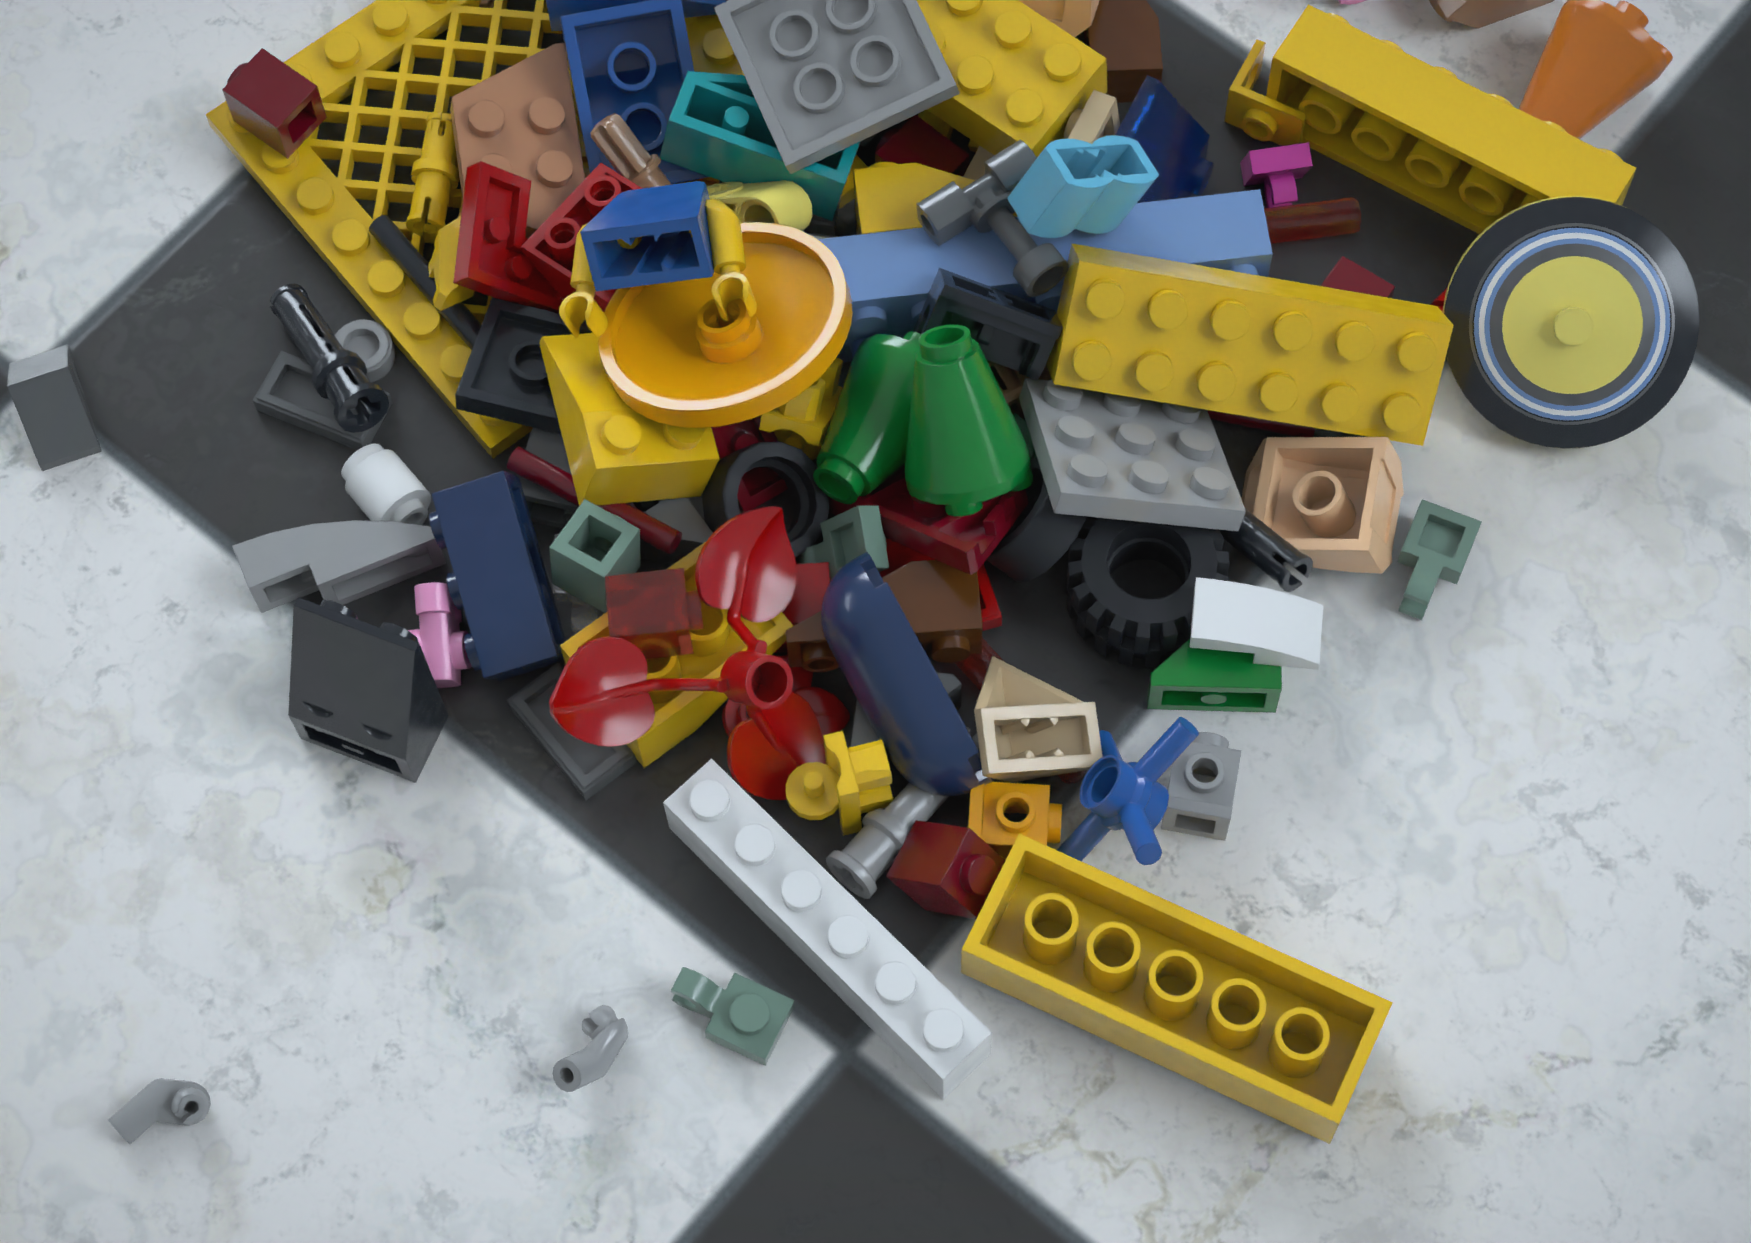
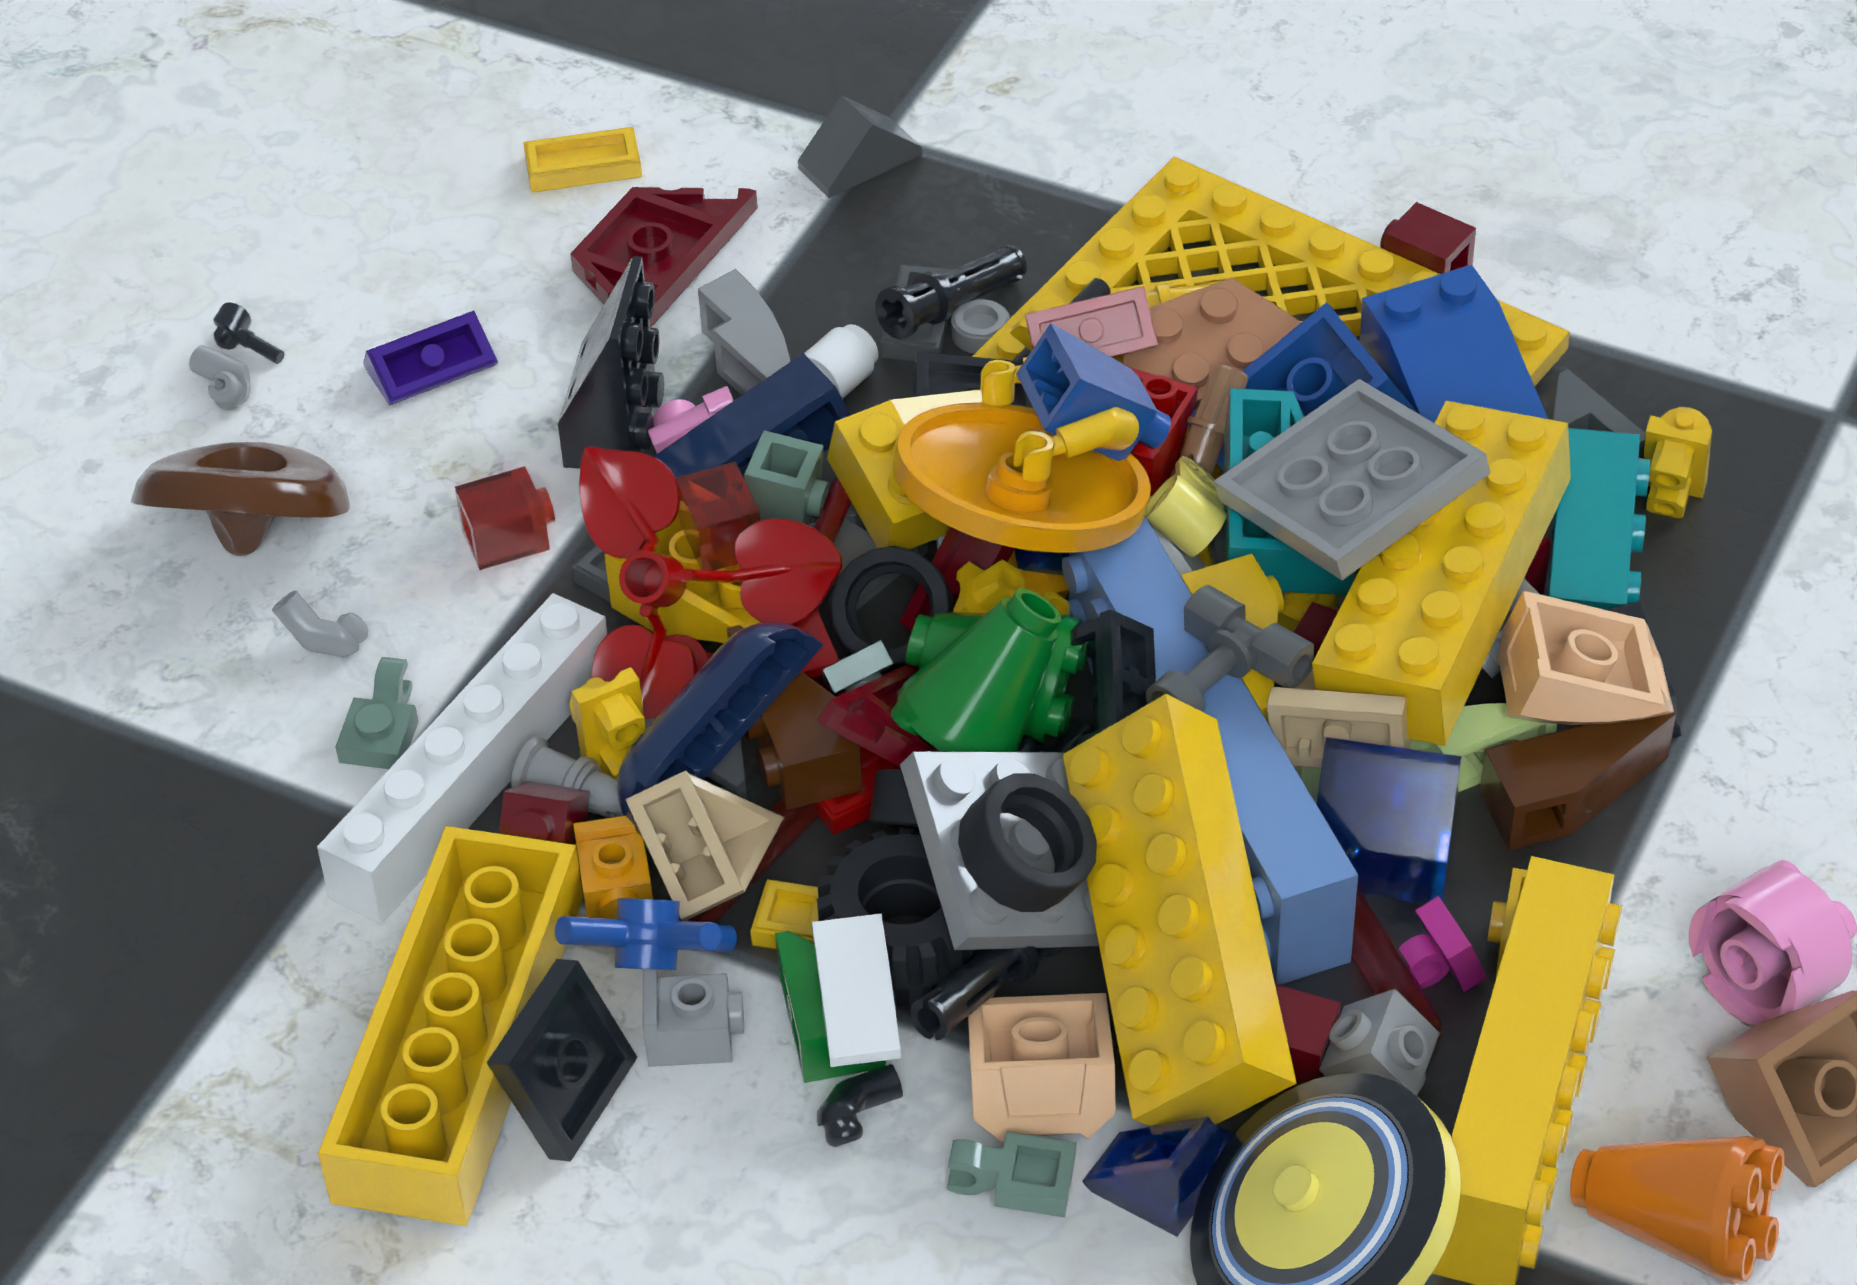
camera: 75 degrees right, 20 degrees down
(86, 1092) = (232, 329): none -> black hand
(135, 629) = (672, 233): none -> dark red wing
(209, 887) = (430, 358): none -> dark purple slope
(274, 102) = (1183, 175): dark red brick -> none
(389, 1099) = (244, 488): none -> reddish brown hat
(497, 844) = (504, 517): none -> clear red brick
(1082, 186) = (1256, 678): medium azure brick -> none
(1093, 677) = (782, 909): none -> yellow tile
(1162, 455) = (996, 865): none -> black tyre
(1231, 882) = (562, 1060): none -> black plate
(1333, 682) = (853, 1096): none -> black arm
(1390, 243) = (1382, 1039): none -> light grey brick
(1463, 440) = (1159, 1170): none -> clear blue slope

